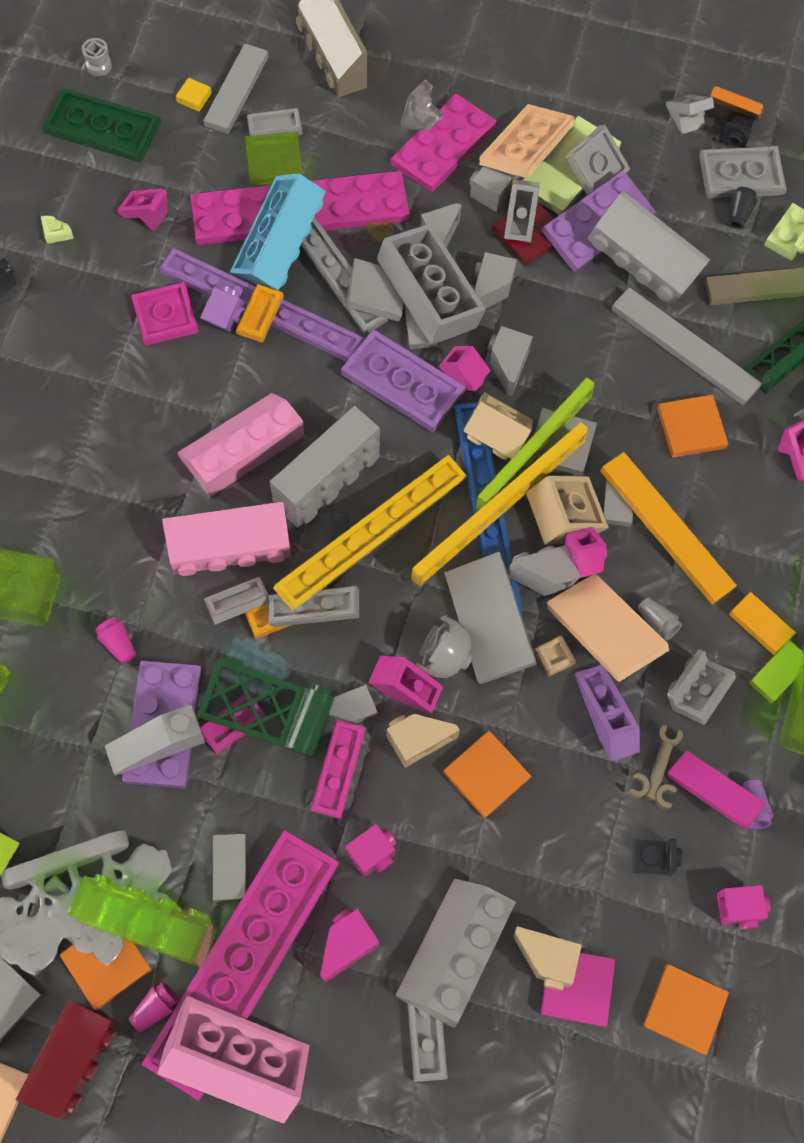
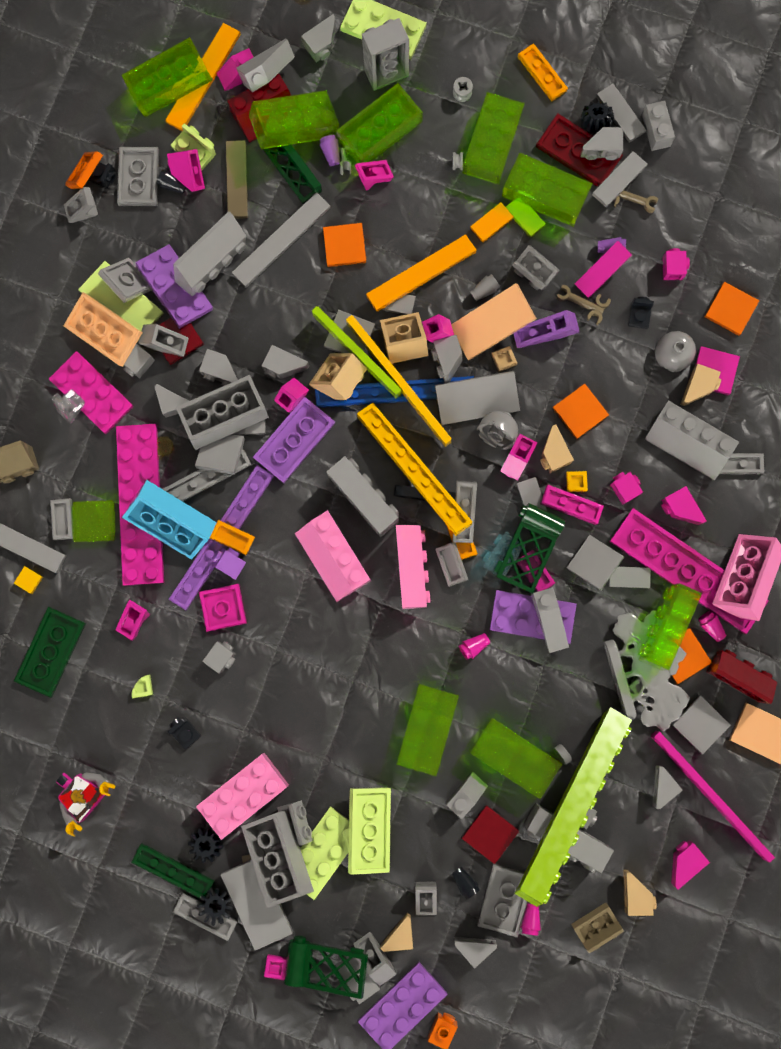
camera: 75 degrees left, 15 degrees up
(95, 311) = (220, 657): none -> light grey brick
(249, 810) = (595, 562): none -> light grey tile
(375, 776) = (576, 481): none -> yellow tile
(601, 918) = (675, 351): none -> light grey cylinder
(762, 221) = (187, 169): none -> dark pink slope

